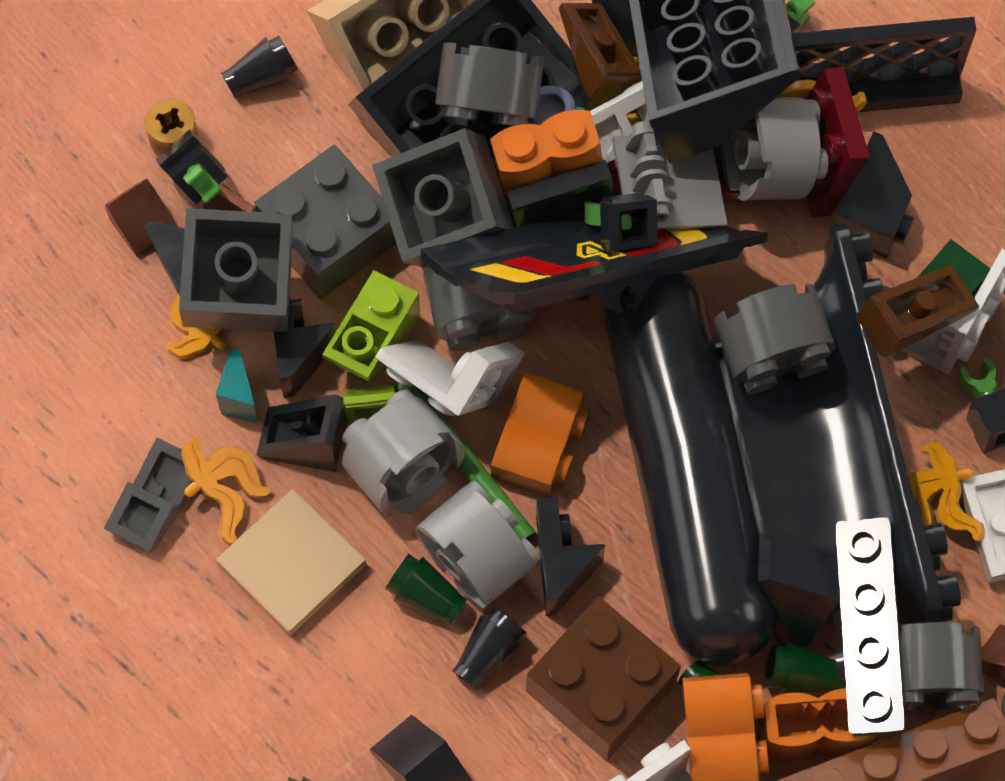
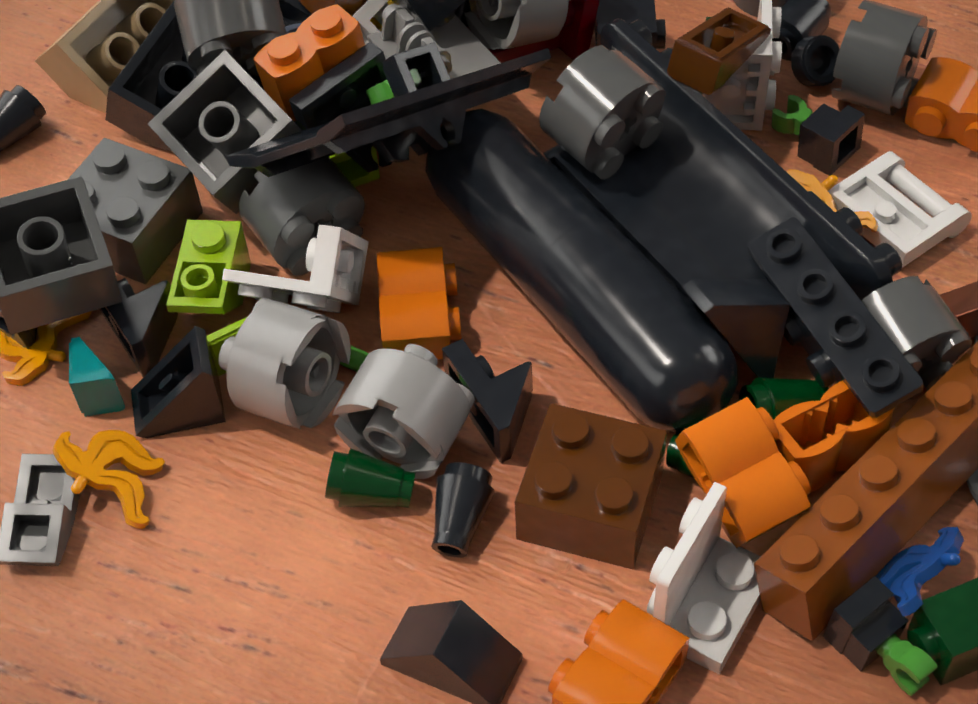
camera: 20 degrees left, 15 degrees down
(291, 562) = (214, 516): tan tile -> none

